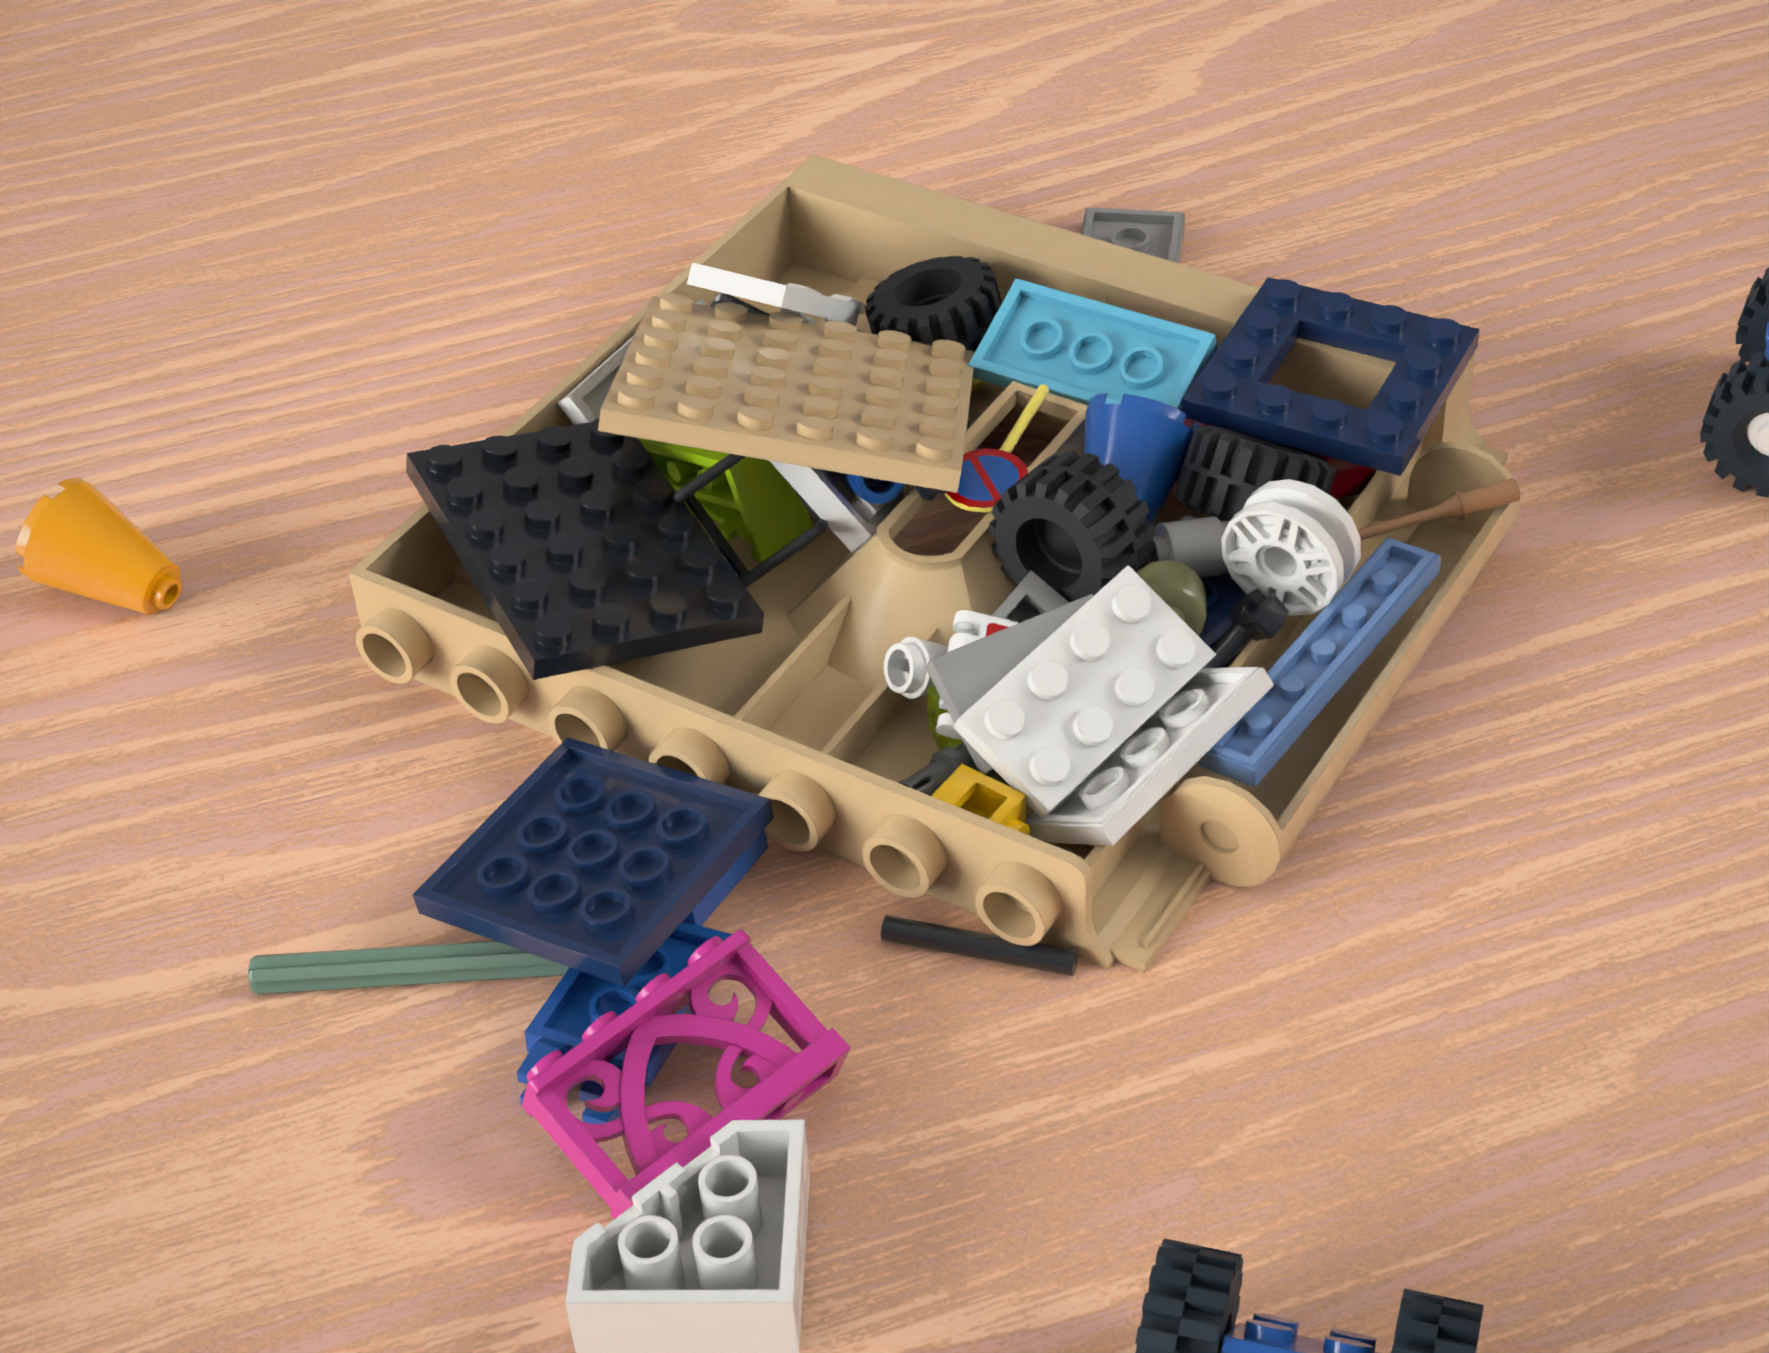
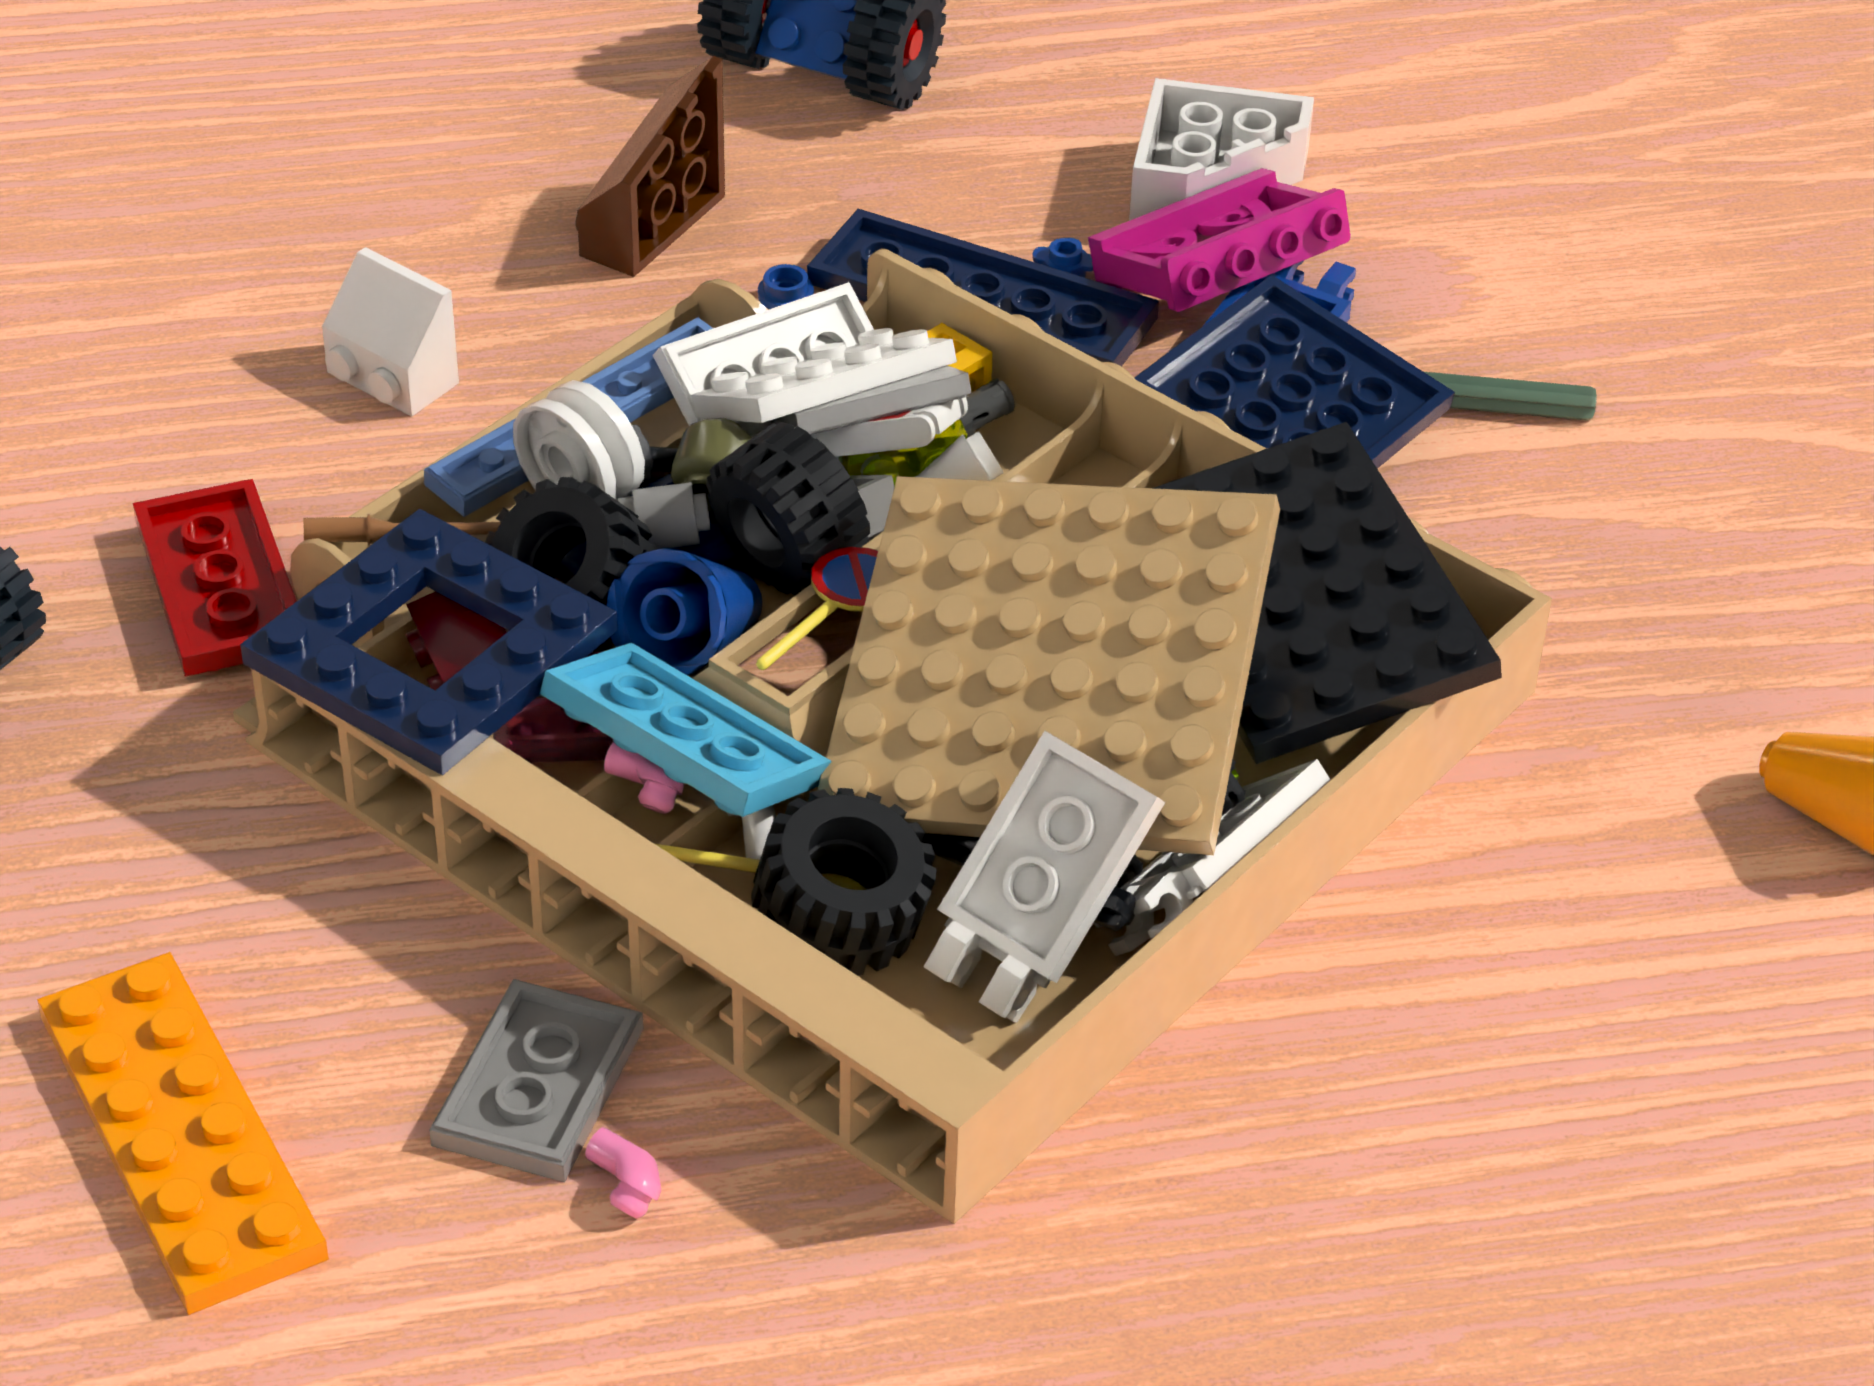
camera: 175 degrees left, 0 degrees up
(885, 1092) = (1064, 255): none -> blue plate
(981, 1002) = (1069, 307): none -> dark blue plate
(1033, 205) = (631, 1165): none -> bright pink arm
(1202, 973) = (784, 285): none -> blue plate
(1360, 203) = (182, 1133): none -> light orange plate
(1411, 1045) = (661, 176): none -> reddish brown wedge
(1589, 788) = (392, 334): none -> white slope
(1608, 550) = (213, 570): none -> red plate

